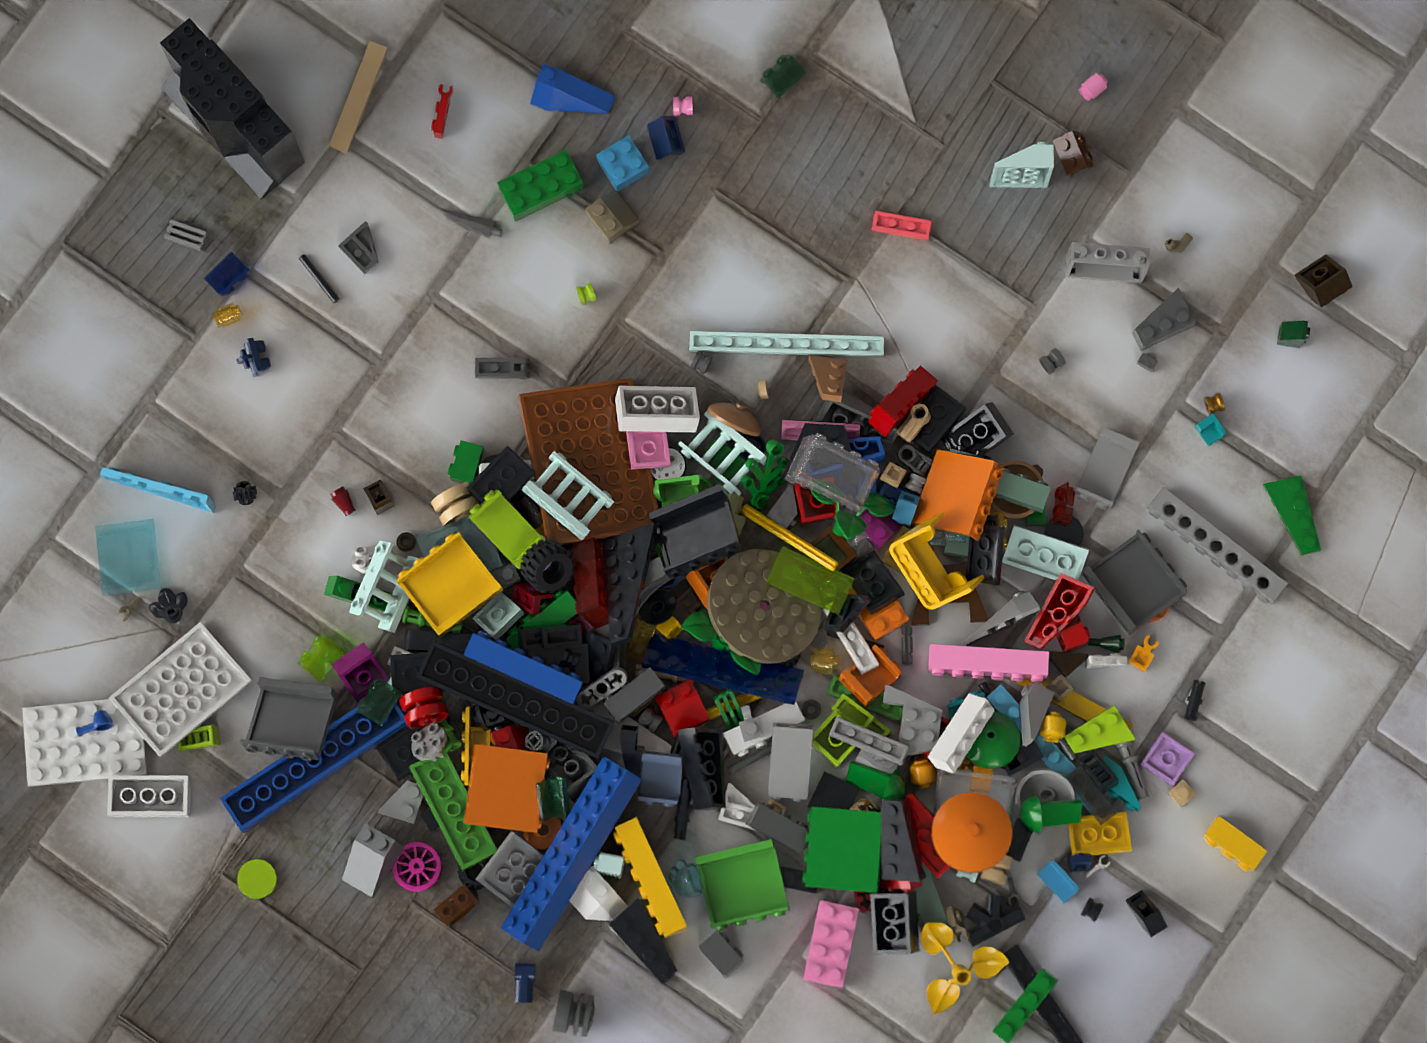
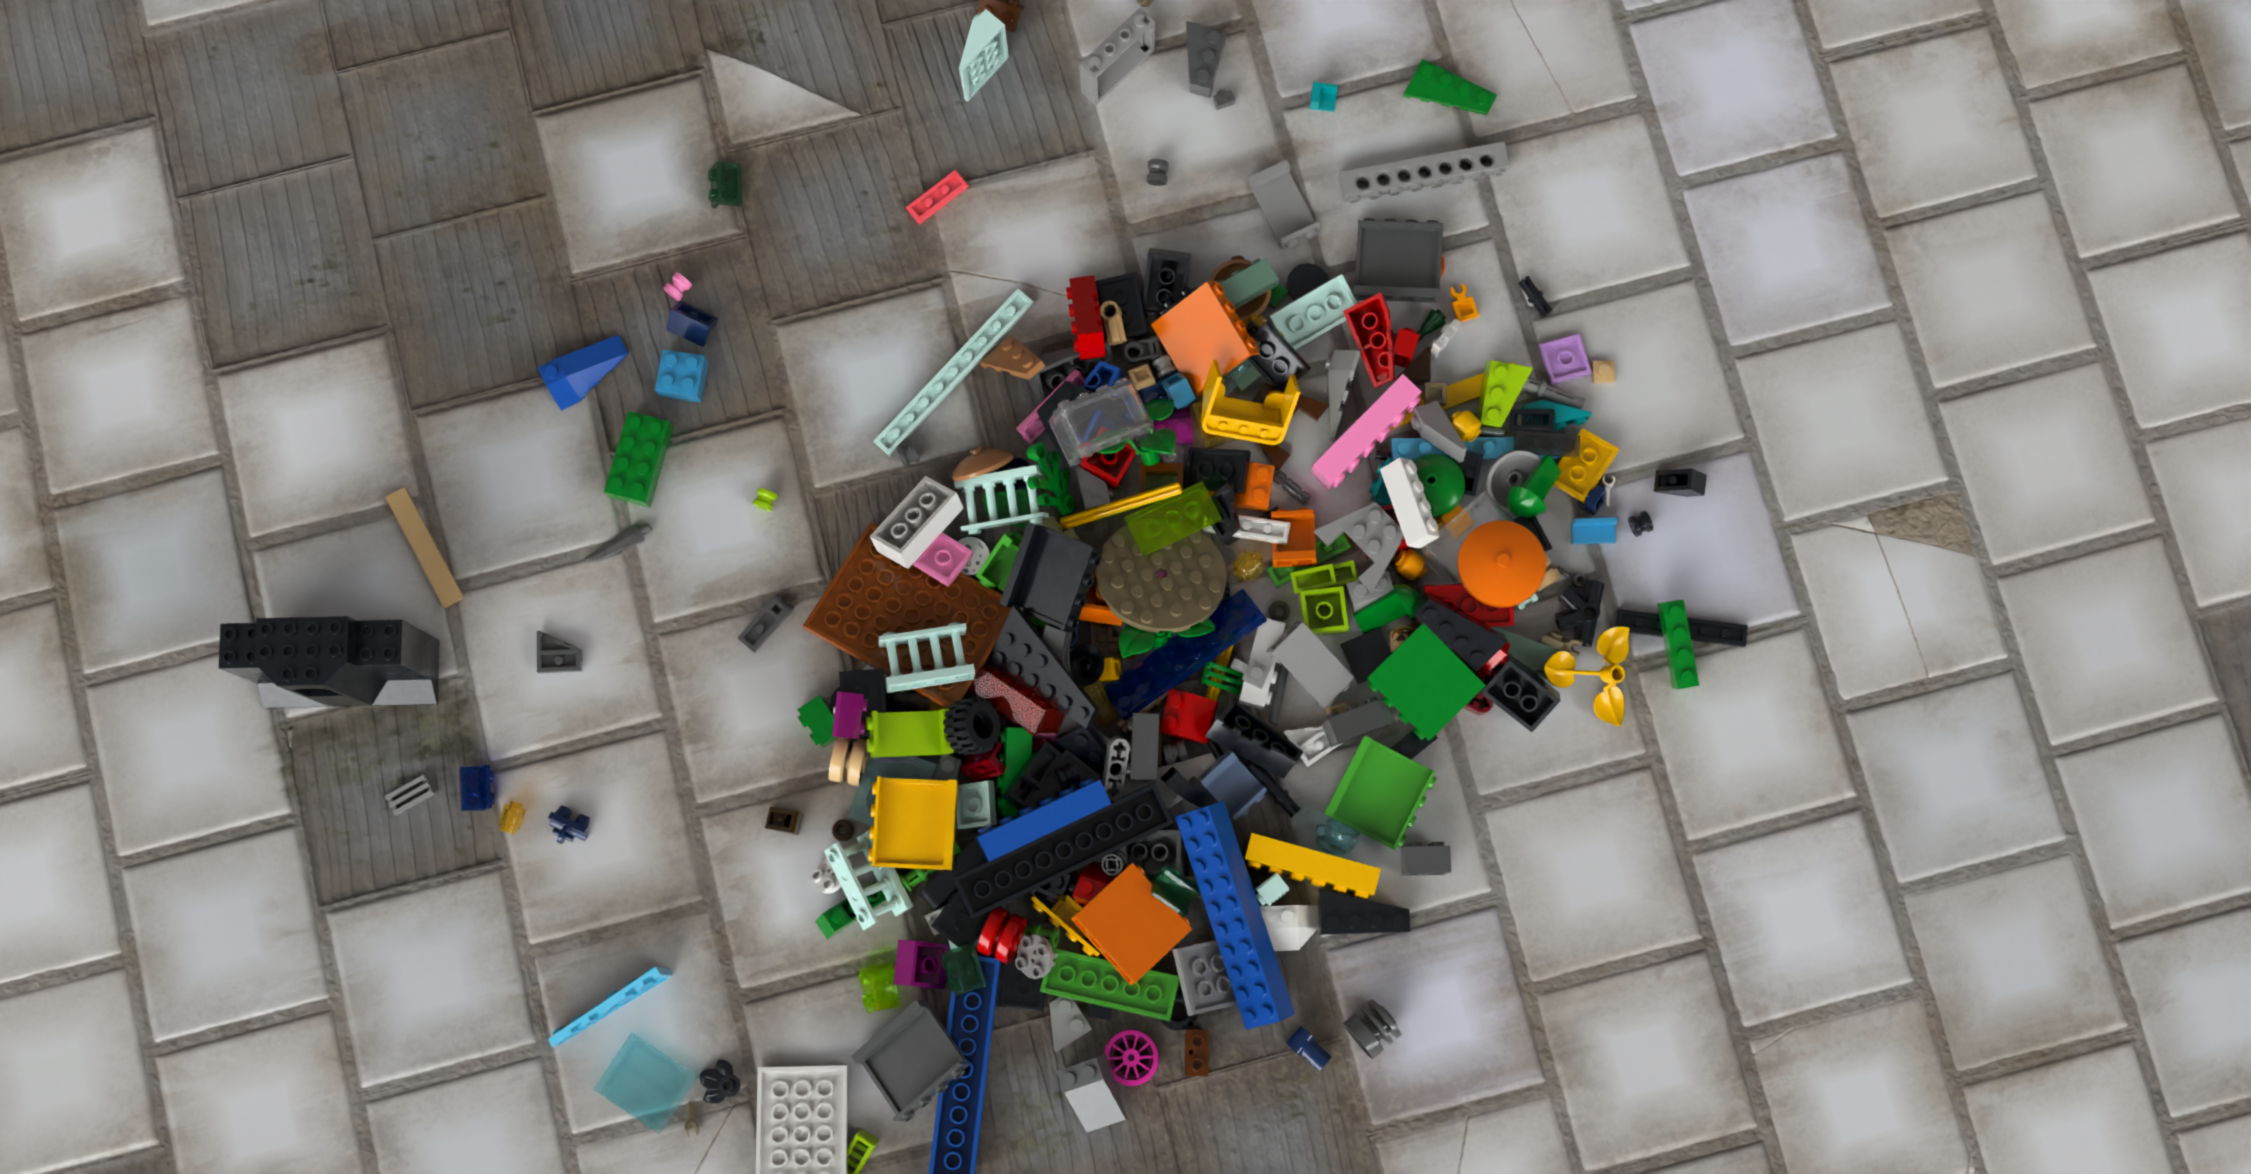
camera: 50 degrees left, 0 degrees up
(244, 493) = (679, 933): black gear -> none
(319, 279) = (547, 712): black bar -> none
(343, 501) = (760, 854): dark red cone -> none
(442, 111) = (498, 485): red plate -> none
(482, 476) = (848, 715): none -> magenta slope
(543, 842) = (1203, 925): orange tile -> none
(611, 216) = (718, 424): dark tan slope -> none
(763, 389) = (976, 423): tan tile -> none
(830, 944) = (1492, 761): bright pink brick -> none
(869, 741) = (1352, 583): light grey tile -> none
(1063, 496) = (1280, 262): clear red hinge -> none
(1214, 403) = (1305, 76): pearl gold wheel -> none
(1234, 844) = (1681, 364): yellow brick -> none

